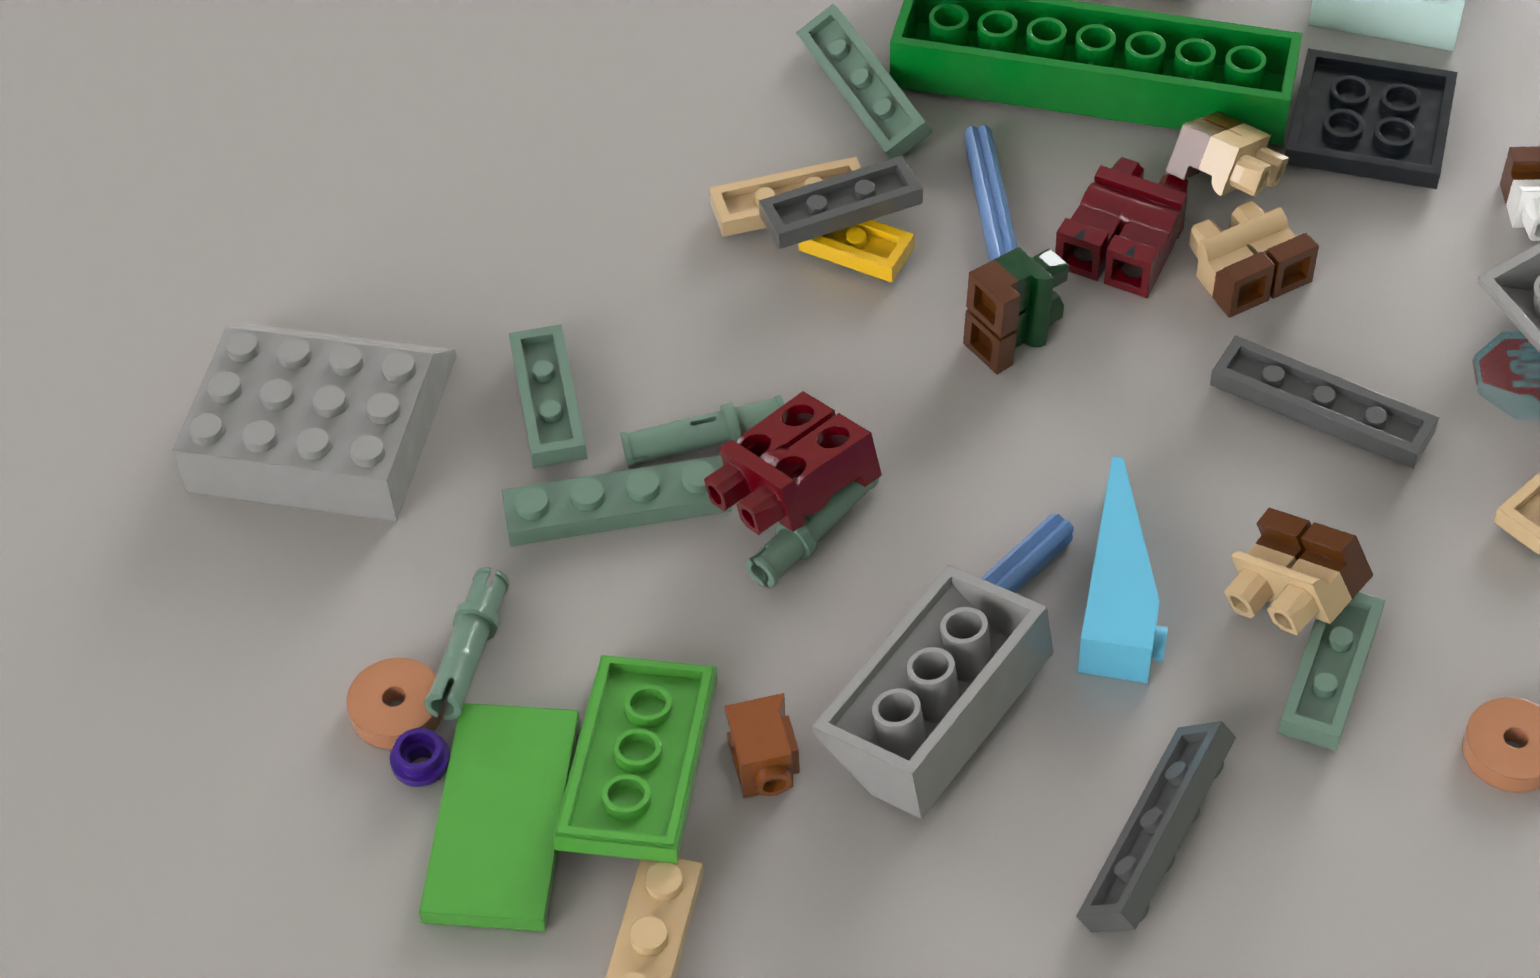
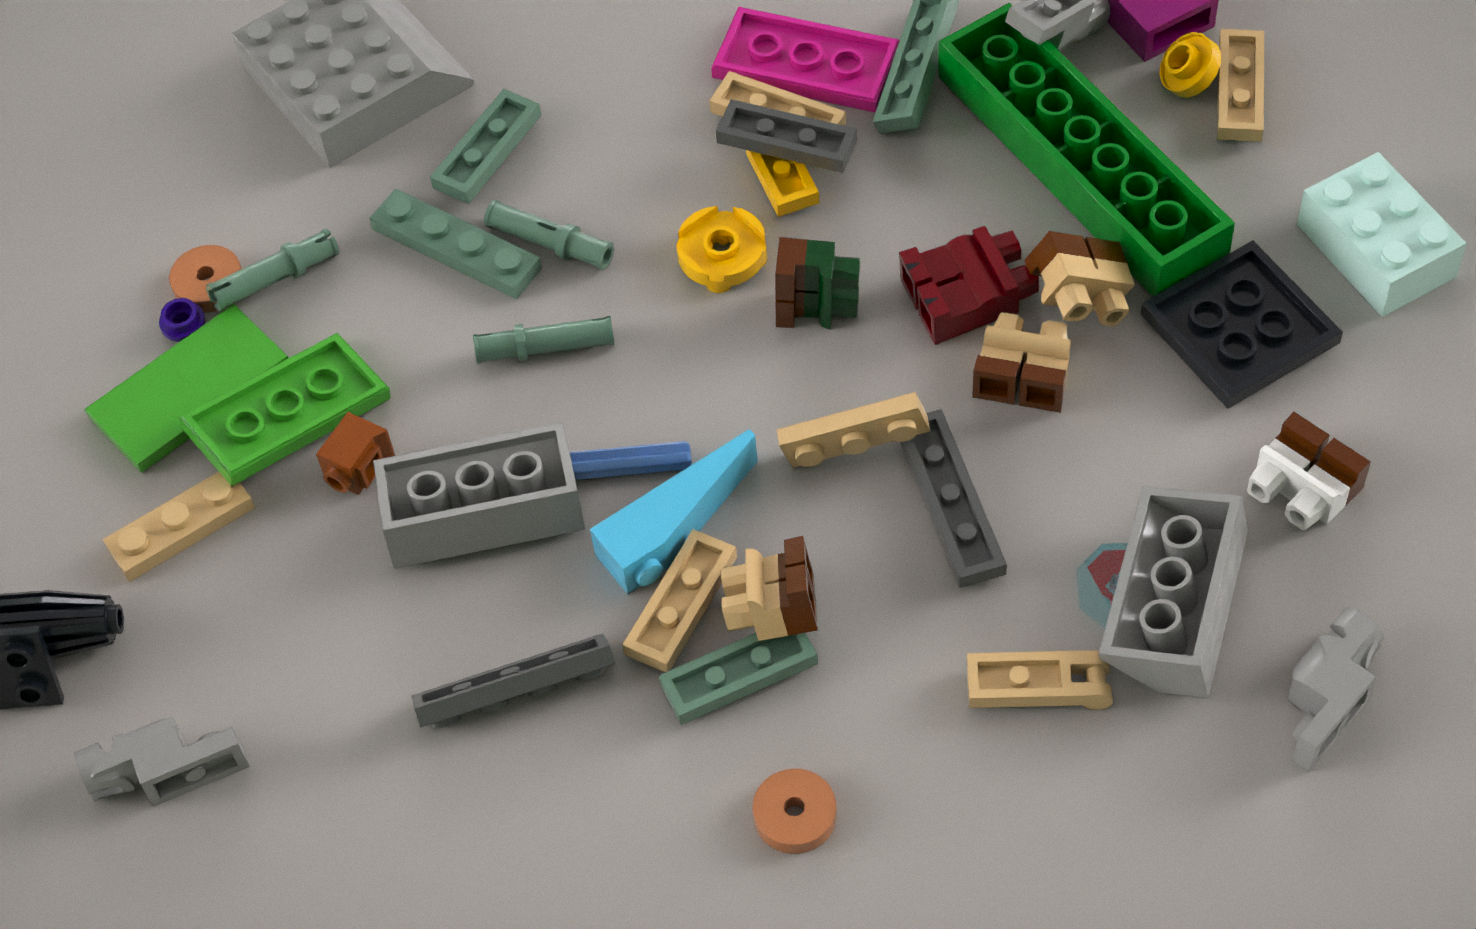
camera: 45 degrees right, 5 degrees up
(754, 139) = (807, 58): none -> dark pink tile
(792, 464) = (549, 290): dark red hips -> none
(883, 361) = (721, 268): none -> yellow plate
(990, 191) = (906, 204): medium blue axle -> none
(1196, 399) = (853, 430): none -> tan plate
(1213, 648) = (679, 601): none -> tan plate

